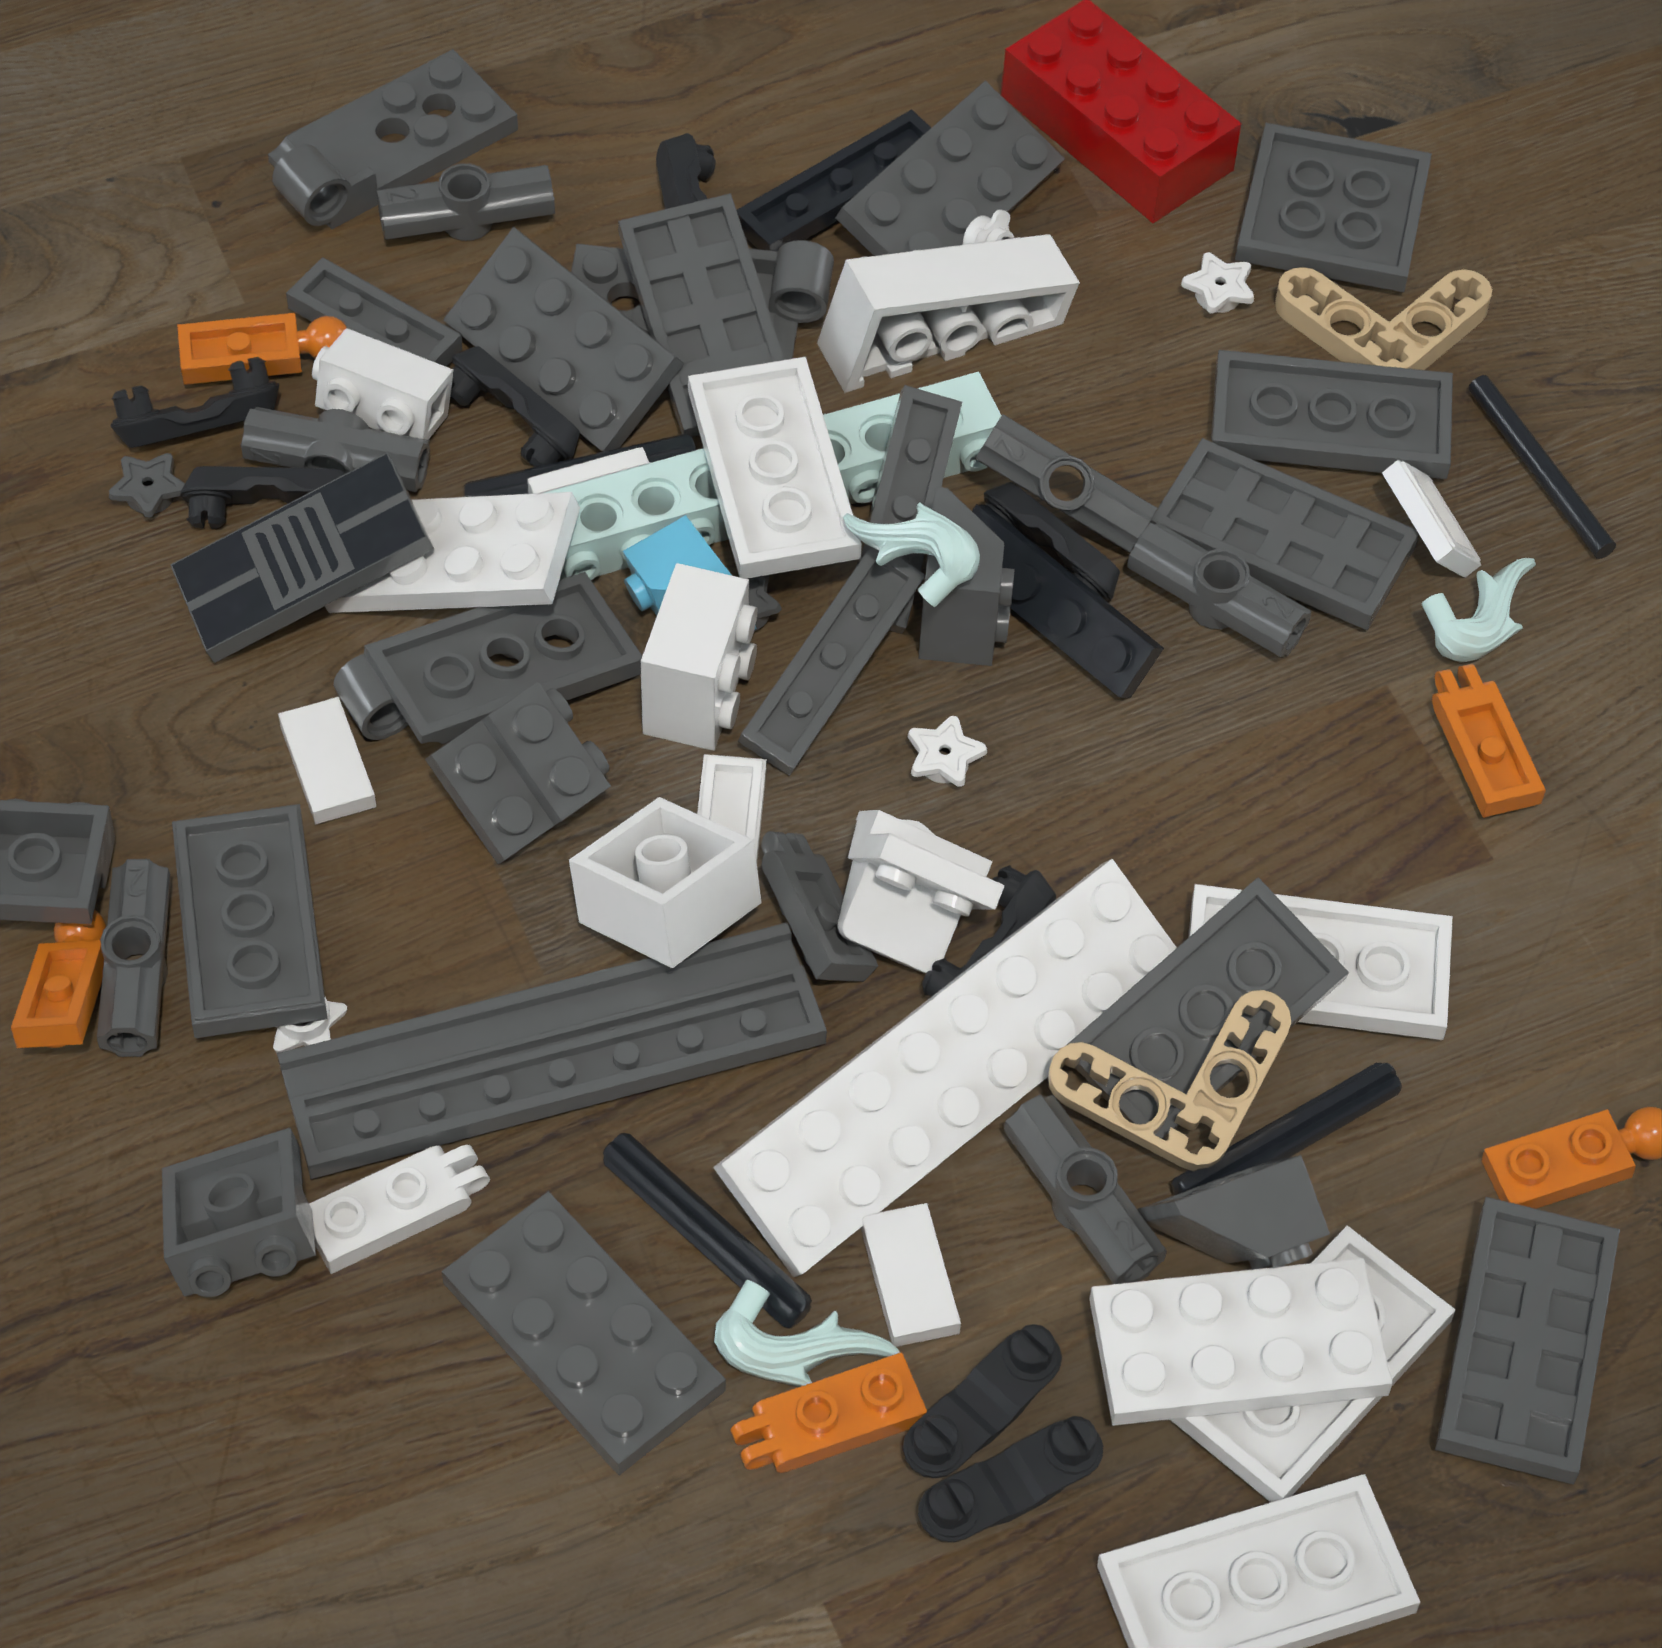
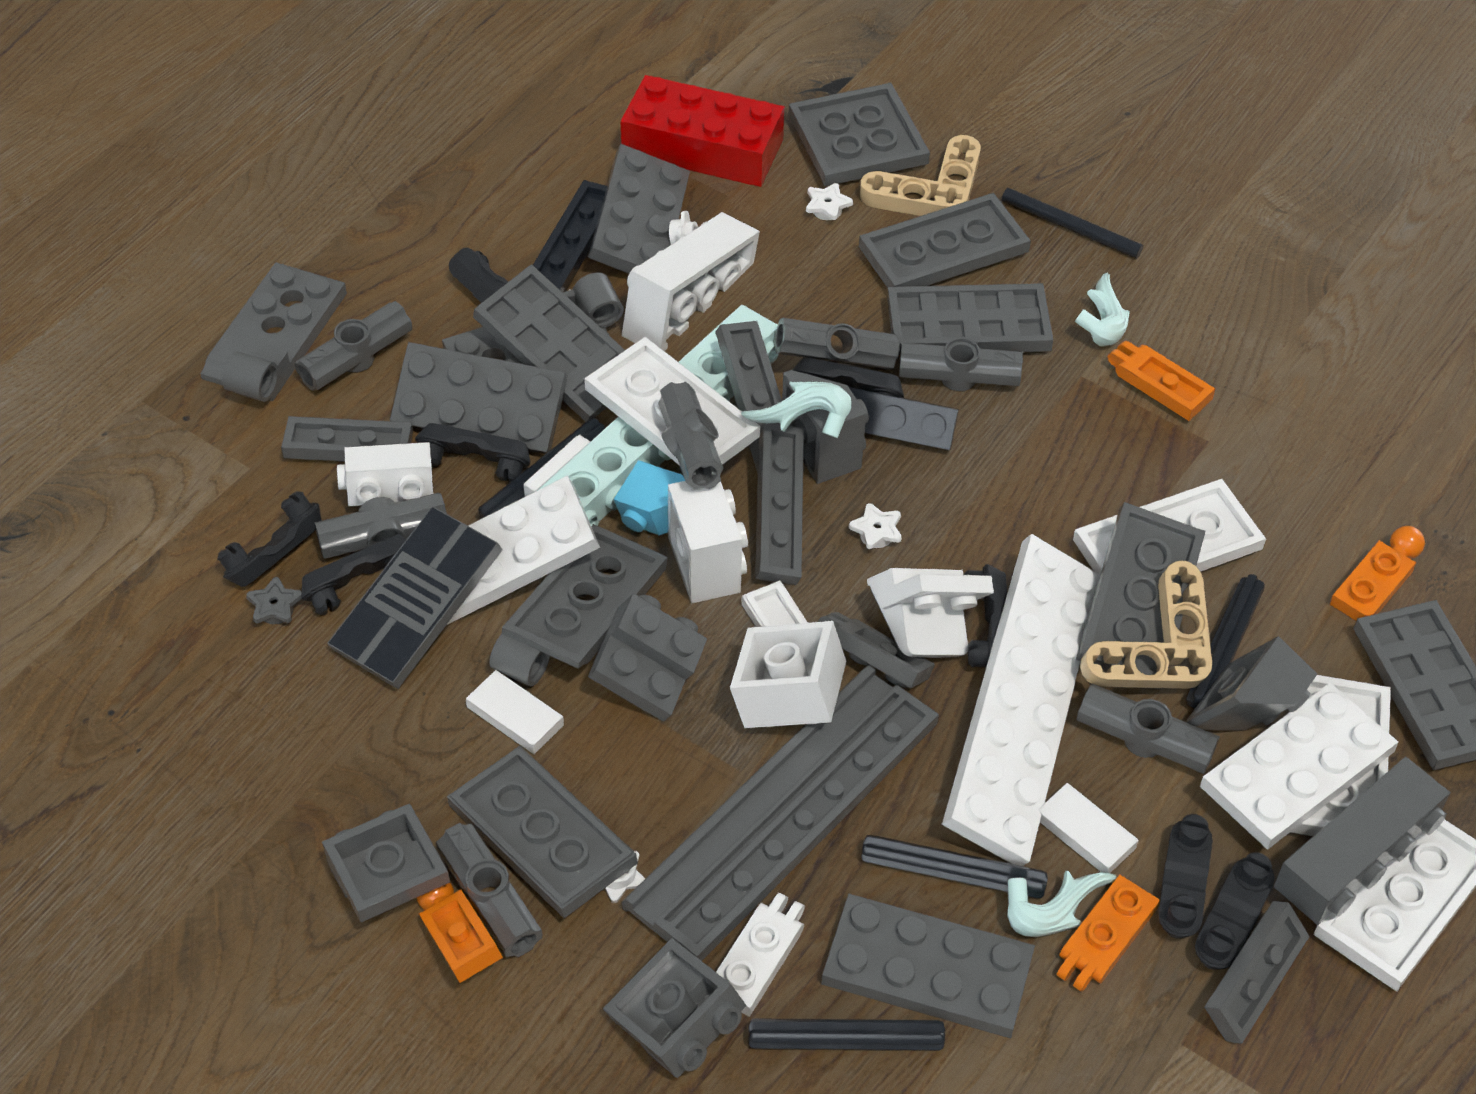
camera: 30 degrees left, 5 degrees down
(212, 346) = (262, 498): orange plate -> none
(421, 1358) = (846, 1034): none -> black axle
(744, 512) = (690, 435): none -> dark grey piece
(976, 1567) = (1257, 972): none -> dark grey plate
(1233, 1480) = (1362, 841): none -> dark grey brick
(1432, 518) = (1042, 273): white tile -> none

